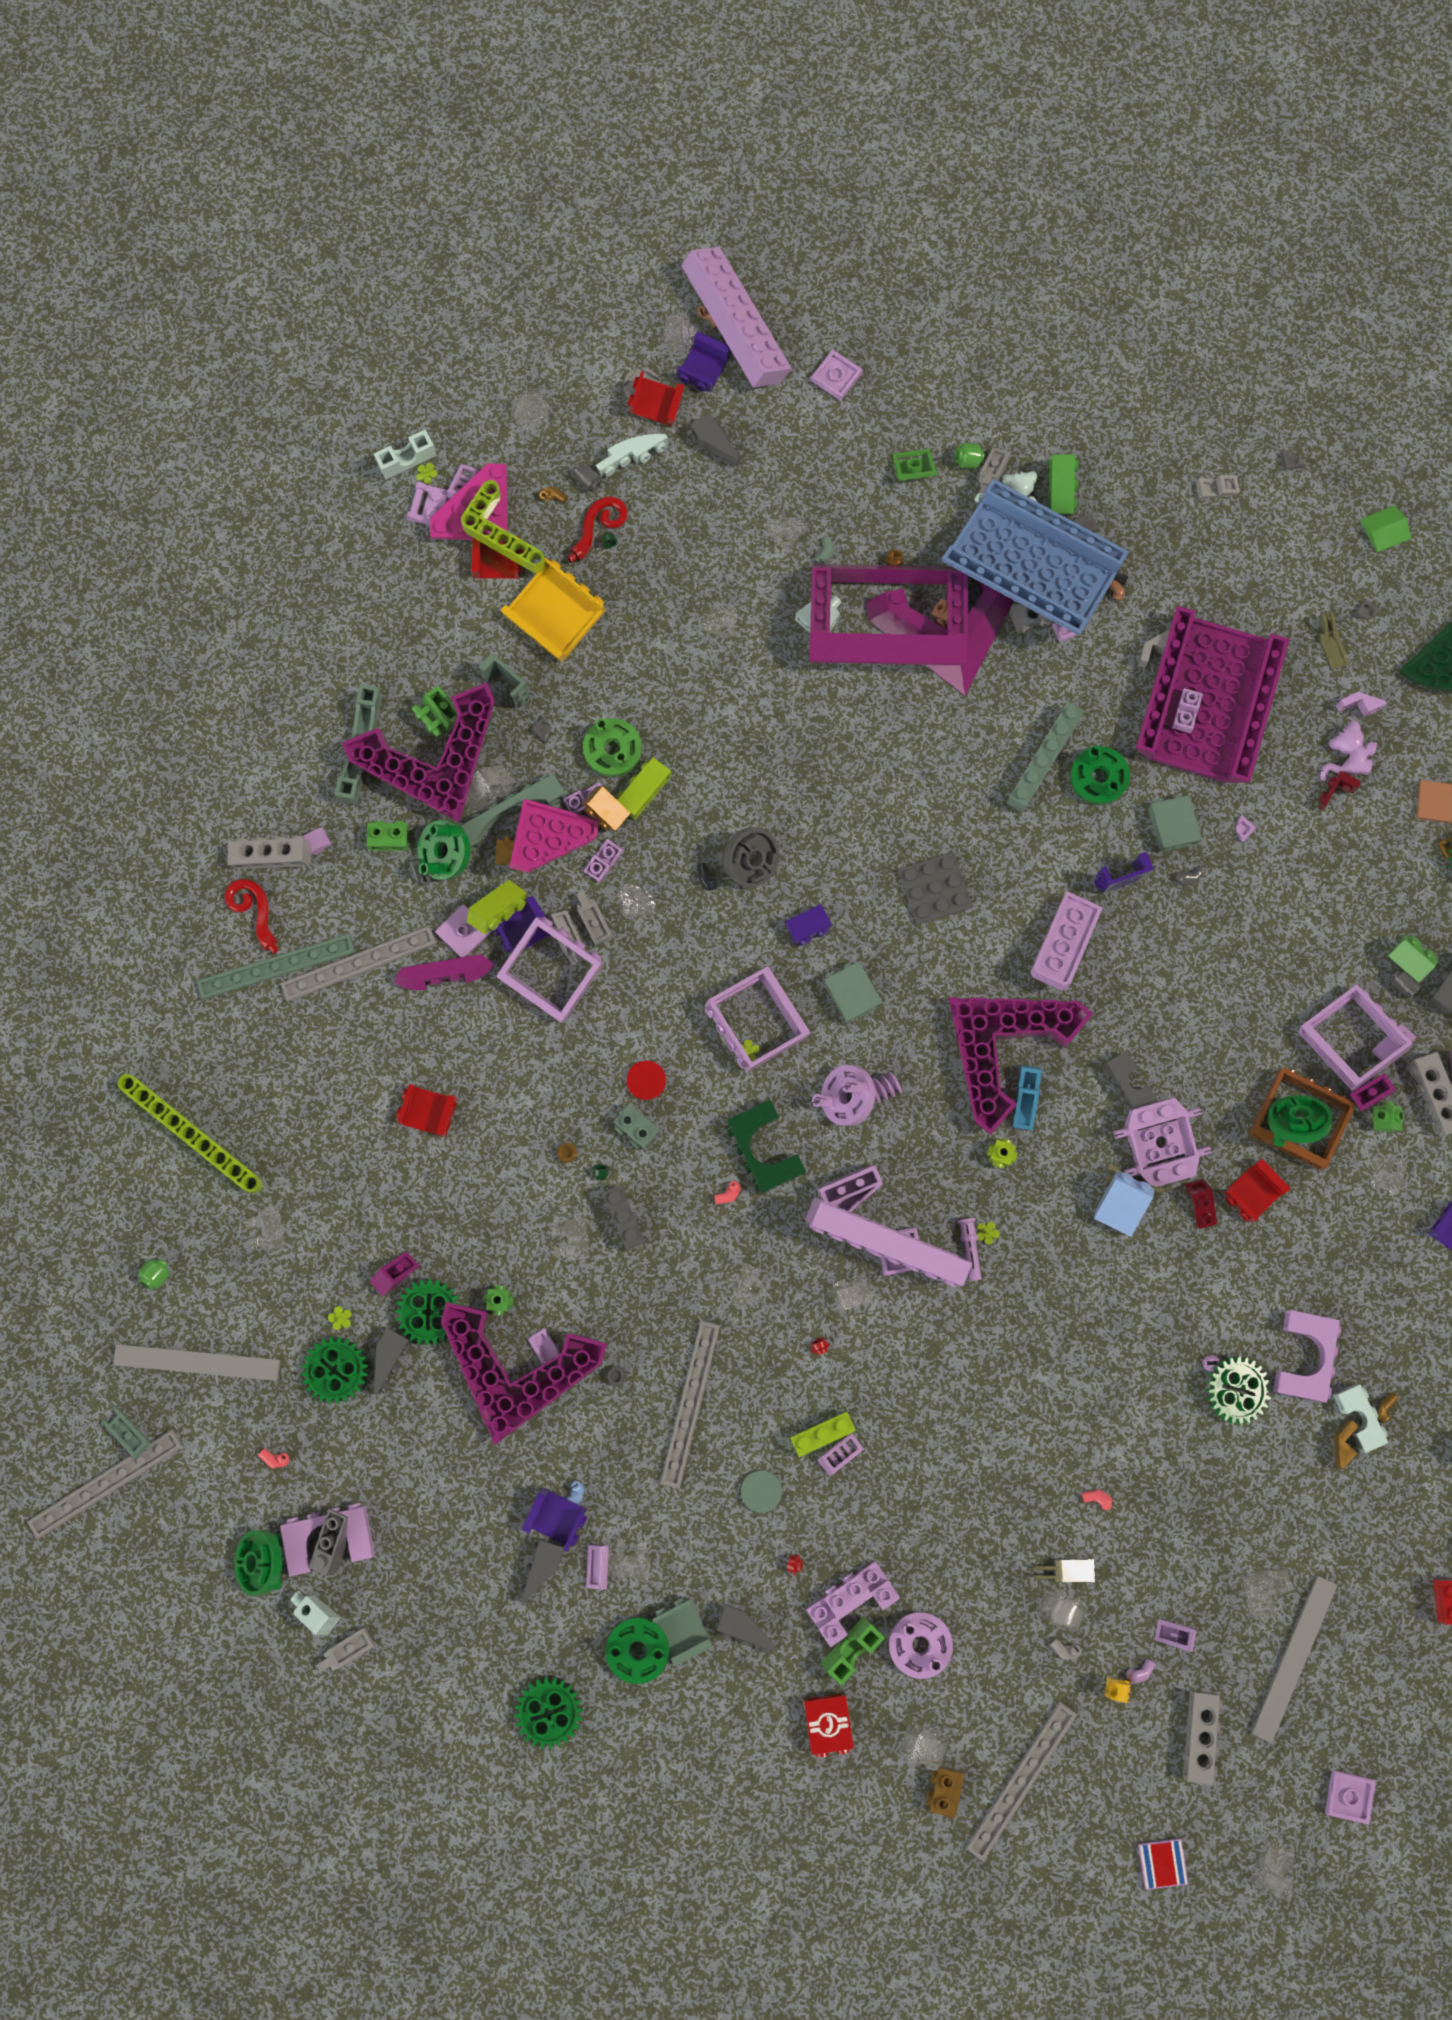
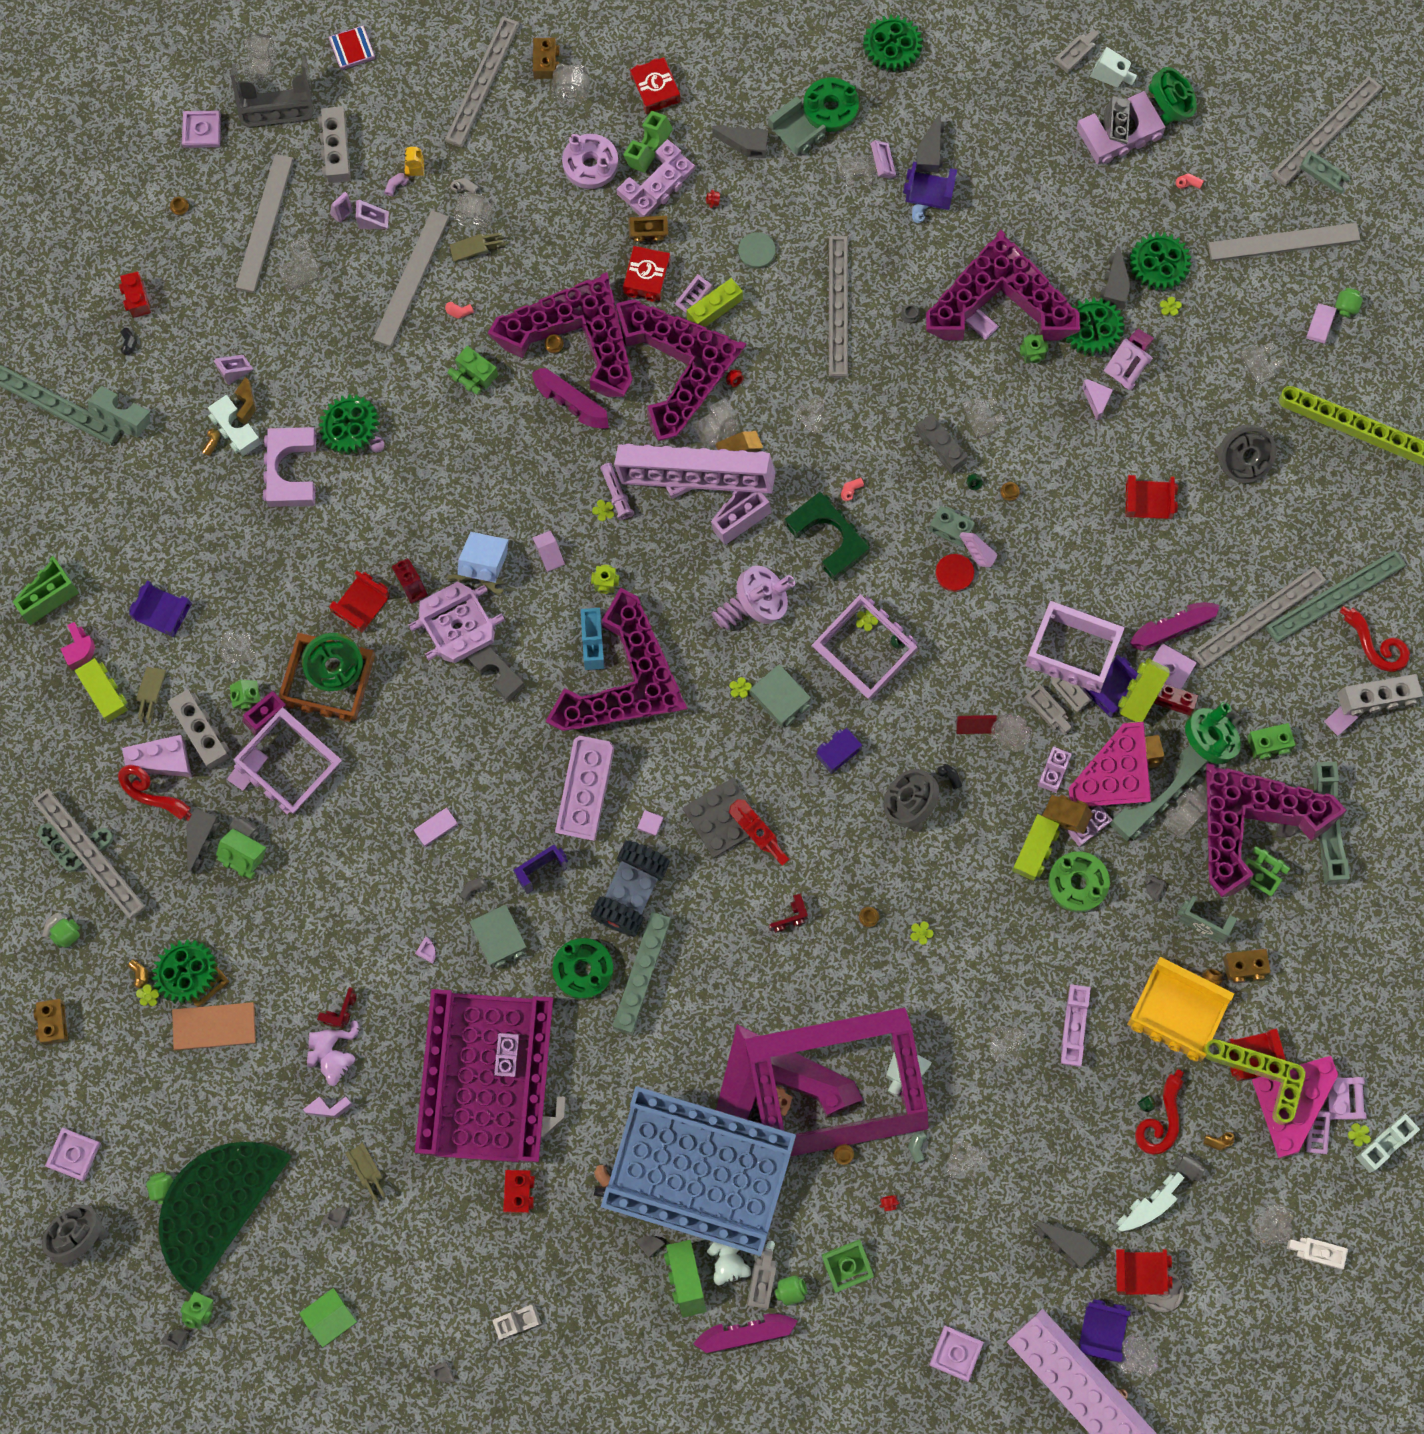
camera: 170 degrees right, 5 degrees down
(190, 1258) = (1321, 323): none -> lavender slope
(329, 1132) = (1232, 456): none -> dark grey piece
(409, 1263) = (1122, 361): none -> lavender plate
(447, 1230) = (1097, 396): none -> lavender slope
(464, 892) = (1176, 699): none -> dark red bracket
(479, 636) = (1247, 965): none -> pearl gold brick
(494, 383) = (1319, 1252): none -> white hinge
(514, 634) = (1213, 976): none -> pearl gold plate
(616, 1091) = (980, 551): none -> lavender slope
(655, 619) = (1075, 1025): none -> lavender slope
(668, 921) = (975, 724): none -> dark red slope
(772, 738) = (921, 932): none -> lime plant
(818, 763) = (868, 917): none -> pearl gold plate
(832, 1267) = (745, 441): none -> pearl gold slope
(842, 1378) = (704, 352): none -> magenta wedge
(863, 506) = (889, 1203): none -> red plate
(874, 1543) = (648, 227): none -> pearl gold brick
(887, 773) = (797, 907): none -> dark red bracket
(887, 1489) = (646, 273): none -> red panel
(889, 1013) = (740, 688): none -> lime plant
(909, 872) = (750, 823): none -> red piece
(961, 1467) = (585, 306): none -> magenta wedge
(980, 1341) = (563, 393): none -> magenta brick
(1002, 1433) = (554, 343): none -> pearl gold plate
(1006, 899) = (650, 823): none -> lavender tile
(1023, 428) = (717, 1339): none -> magenta brick
(1041, 833) = (630, 888): none -> black plate
(1053, 1202) = (548, 551): none -> lavender slope
(1092, 1422) = (475, 367): none -> bright green brick
(1142, 1550) = (411, 279): none -> light grey tile
(1198, 591) = (518, 1191): none -> red brick
(1208, 1651) = (341, 208): none -> lavender slope
(1216, 944) = (435, 827): none -> lavender tile
(1265, 1808) = (273, 106): none -> dark grey windscreen
(1353, 1487) = (233, 367): none -> lavender slope
(1387, 1703) = (179, 205): none -> pearl gold plate

